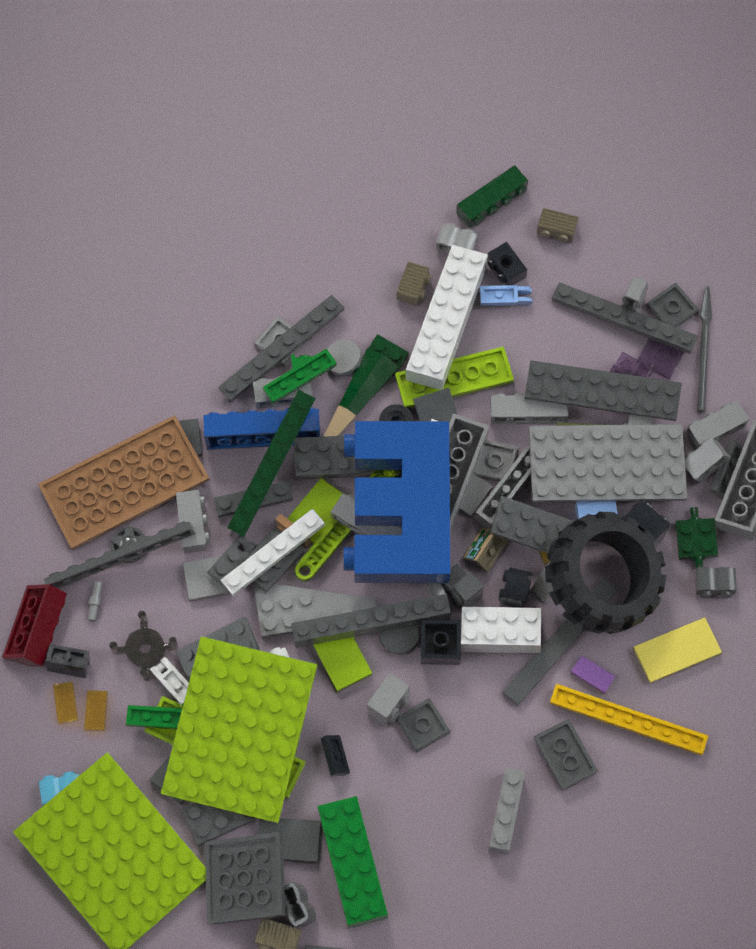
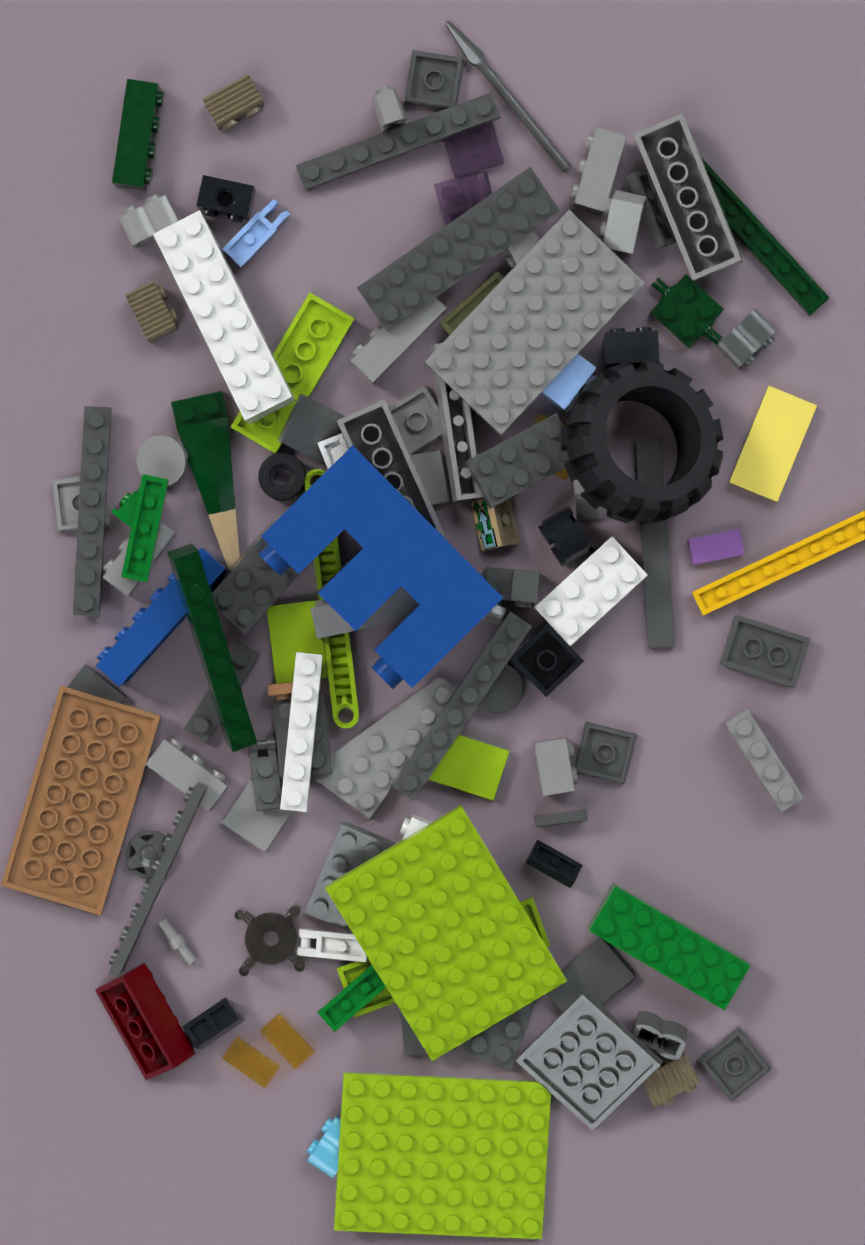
camera: 45 degrees left, 20 degrees up
(363, 734) = (560, 818): none -> dark grey tile

